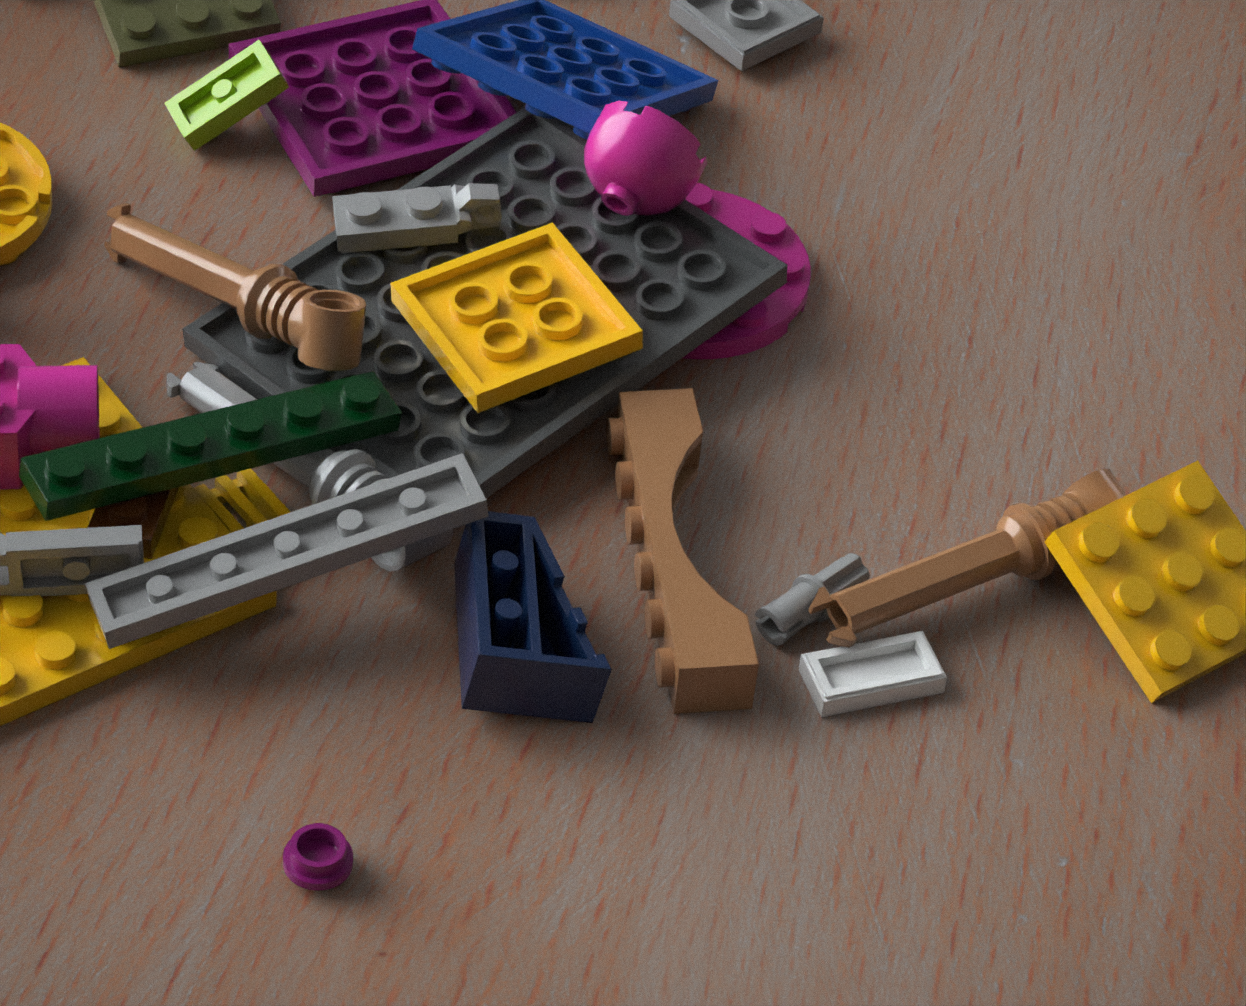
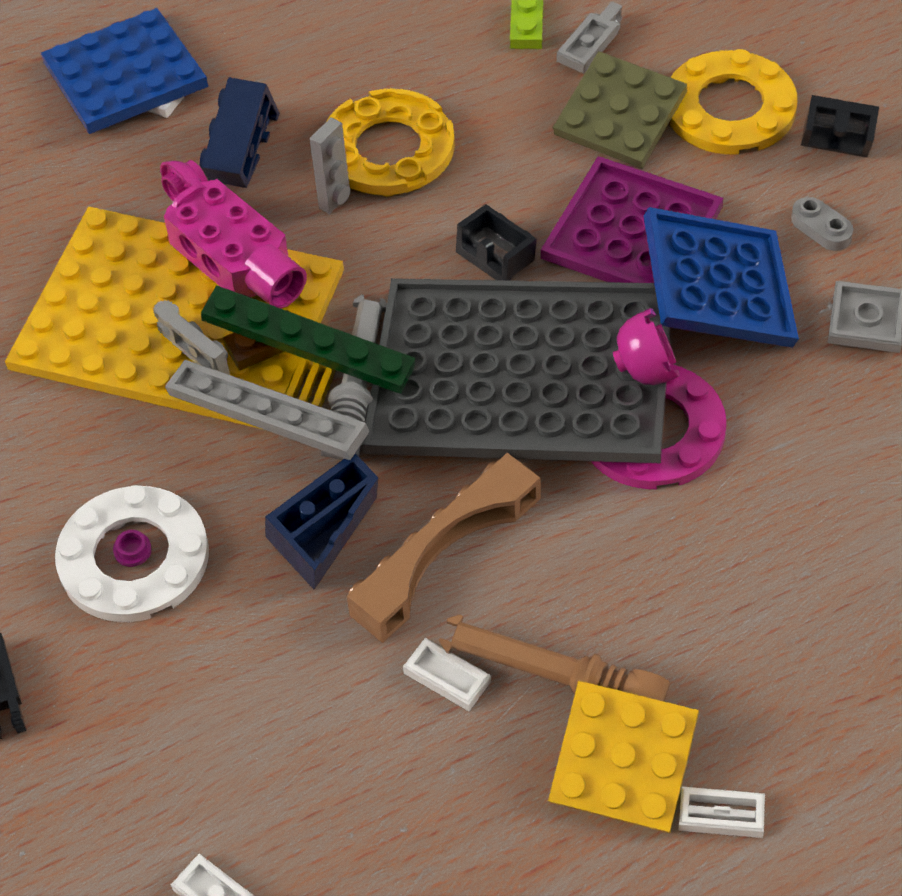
camera: 60 degrees right, 10 degrees up
(226, 95) = (558, 180): lime plate -> none
(252, 210) = (494, 243): none -> black window
(269, 301) = (421, 291): medium nougat piece -> none
(325, 947) = (138, 598): none -> white plate
(413, 216) = (537, 298): light grey hinge -> none
(516, 317) = (504, 381): yellow plate -> none
(790, 612) = (483, 618): light grey axle -> none

